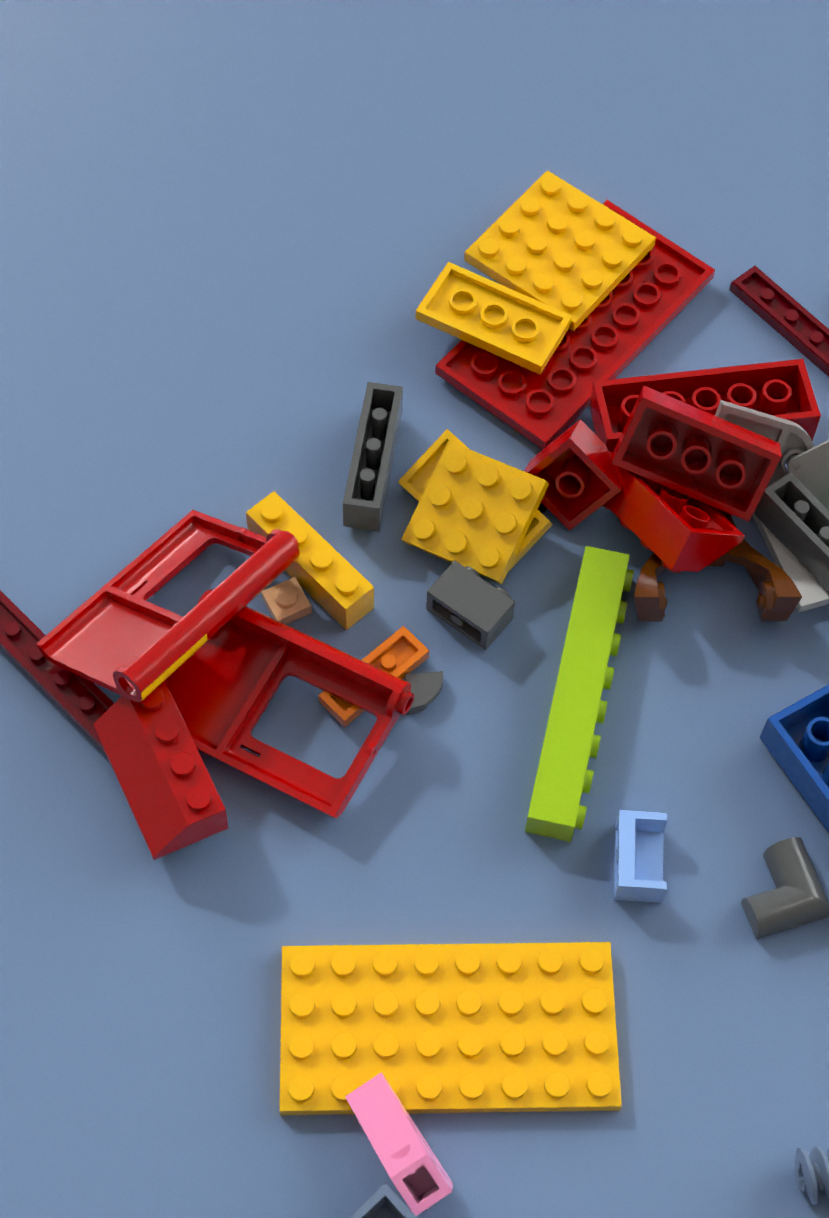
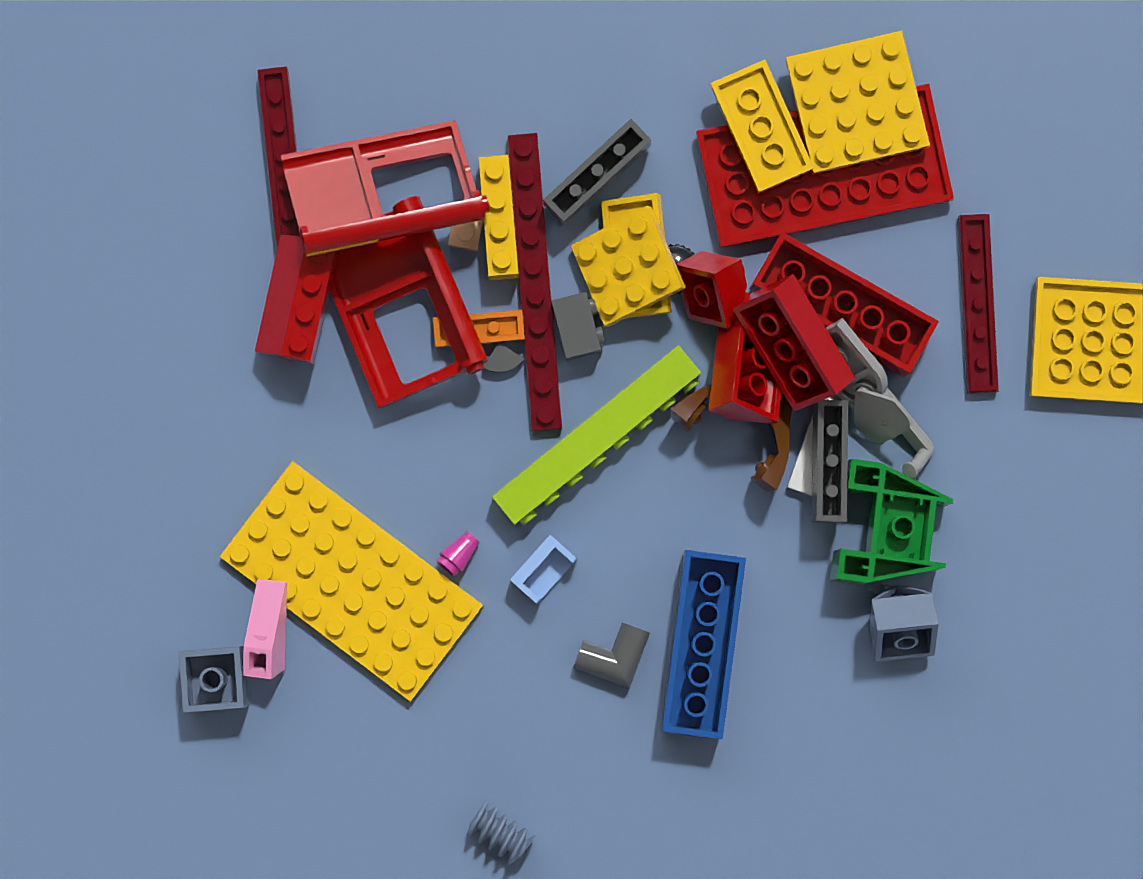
camera: 40 degrees right, 25 degrees up
(404, 607) = (534, 282): none -> dark red plate
(539, 910) = (456, 555): none -> dark pink cone

